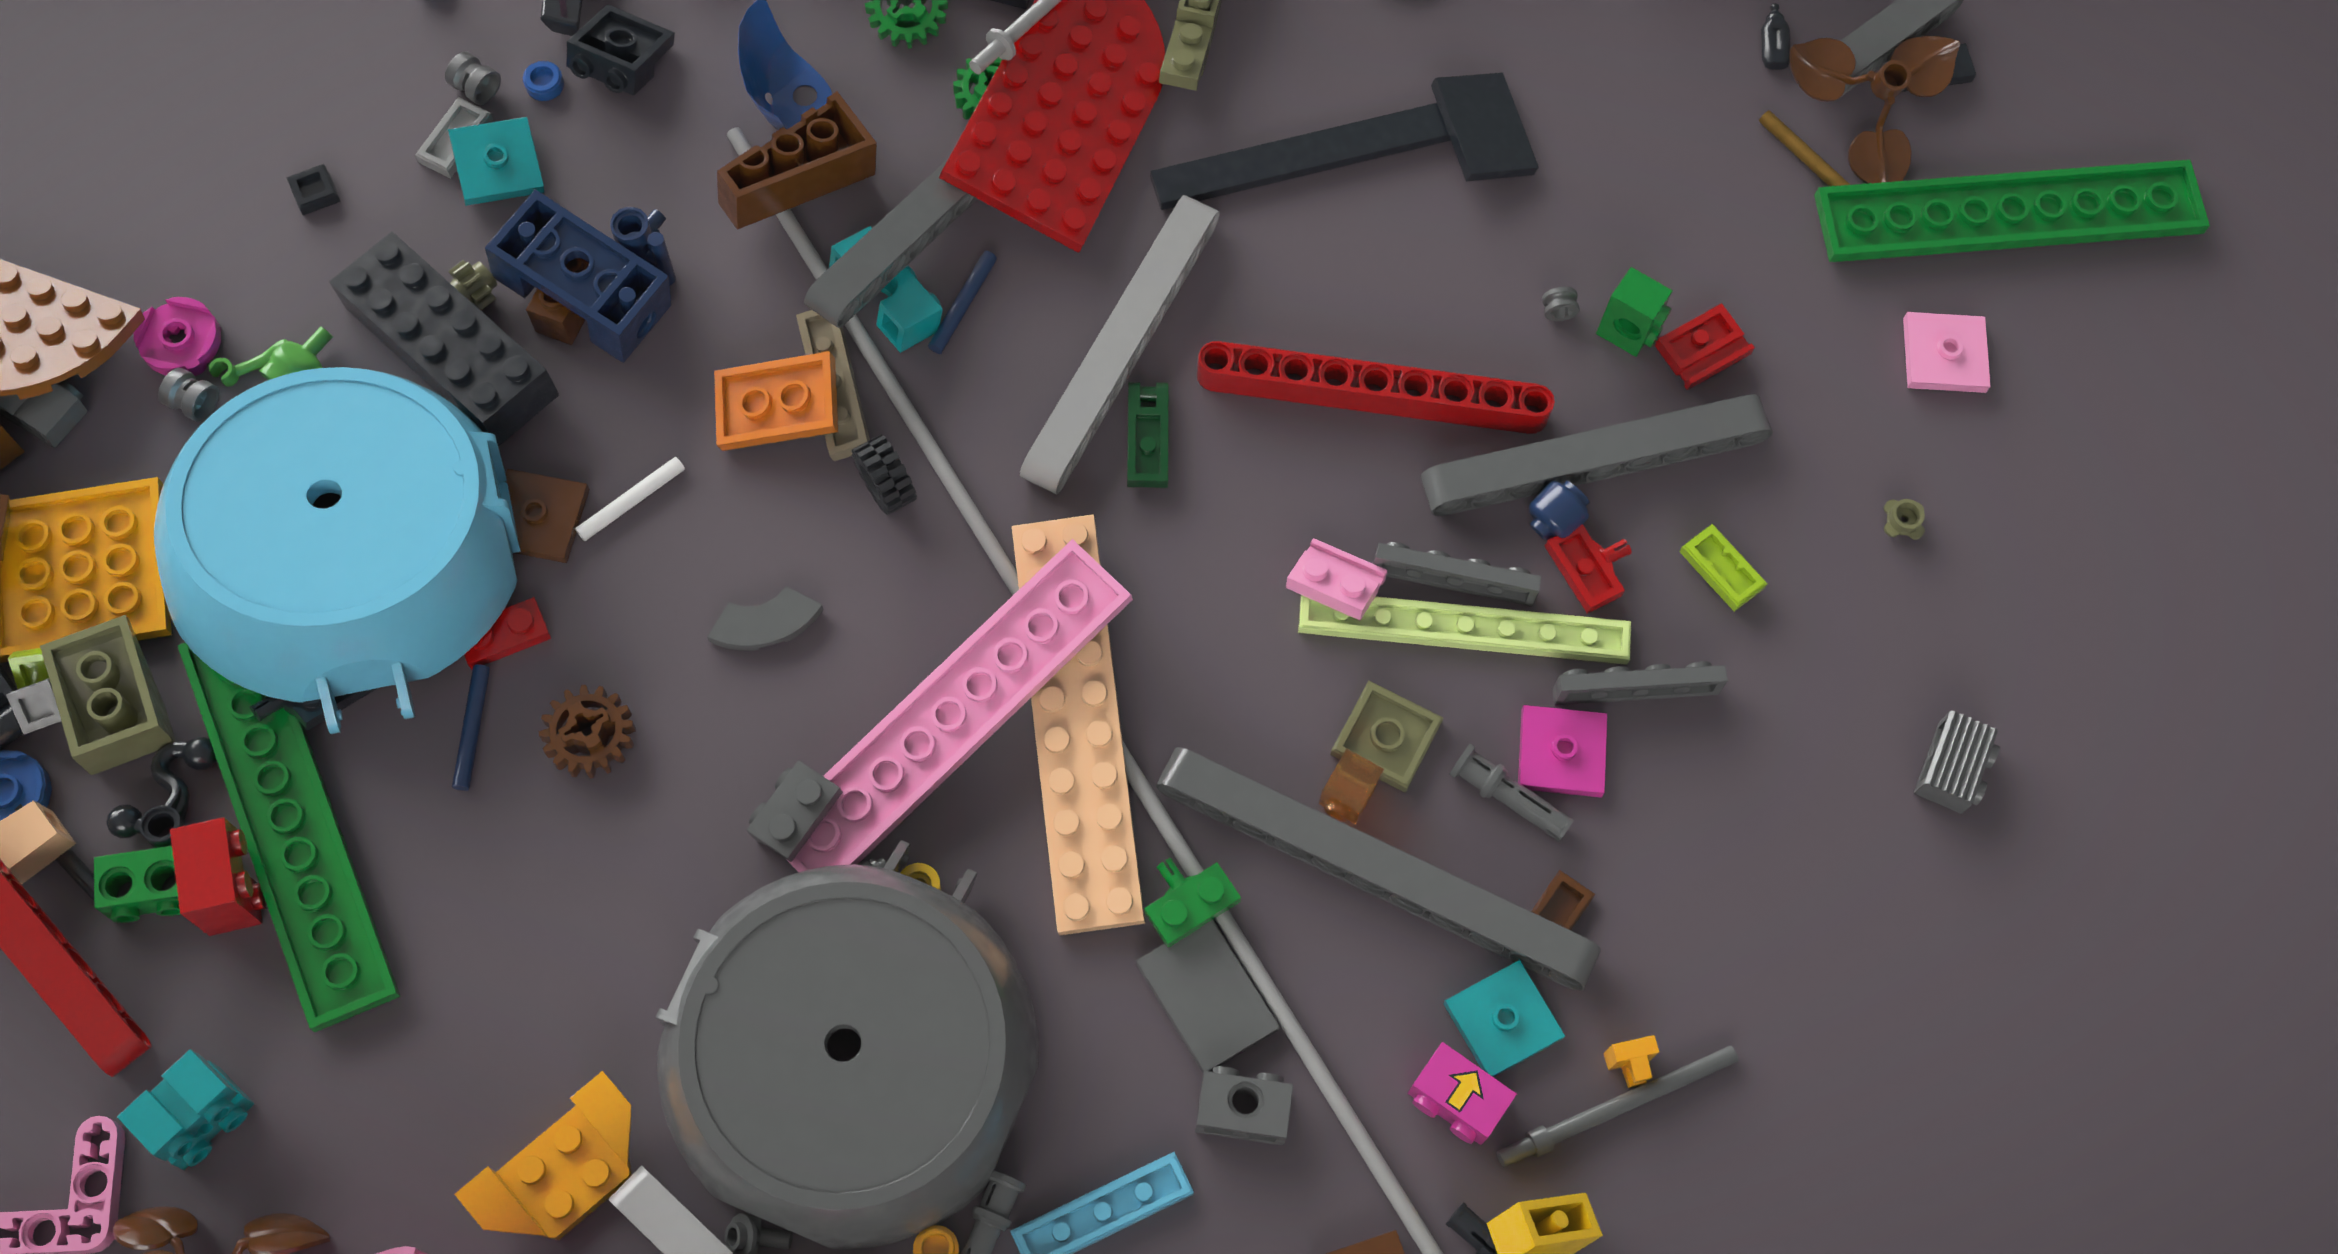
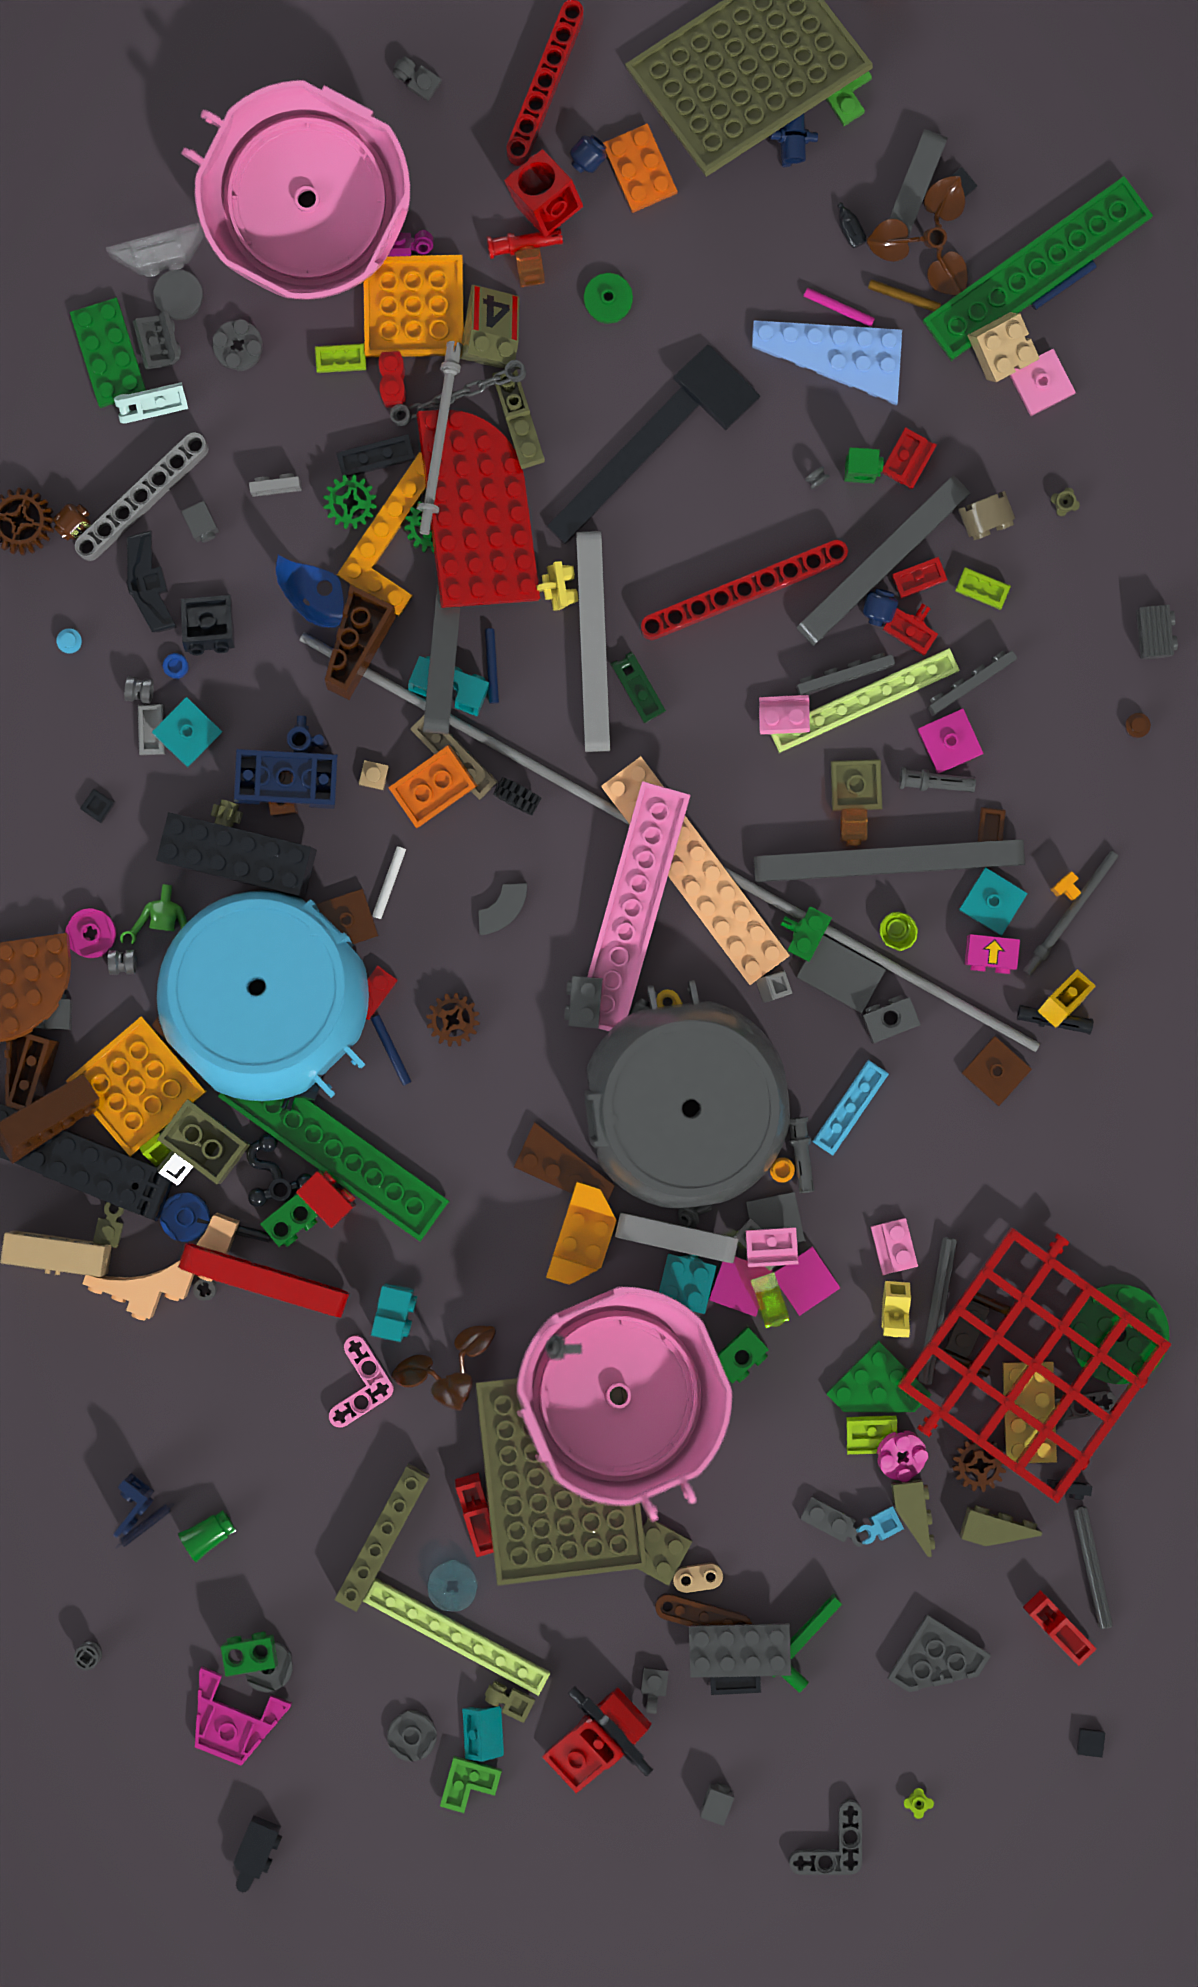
camera: 25 degrees left, 20 degrees up
(595, 1035) = (557, 1165): none -> reddish brown wing
(707, 350) = (374, 775): none -> tan plate
(905, 75) = (359, 566): none -> light orange plate
(1094, 957) = (774, 986): none -> light grey slope
(1126, 235) = (554, 585): none -> light yellow hips
(1332, 976) = (898, 931): none -> lime hair
(1637, 504) = (919, 577): none -> red plate
(1682, 179) = (845, 354): none -> light blue wing
(1707, 122) = (839, 307): none -> dark pink bar
(1782, 468) = (987, 514): none -> dark tan brick
(1864, 882) = (1137, 725): none -> reddish brown plate
(1916, 266) = (1003, 347): none -> tan piece
(2039, 250) = (1064, 284): none -> dark blue bar

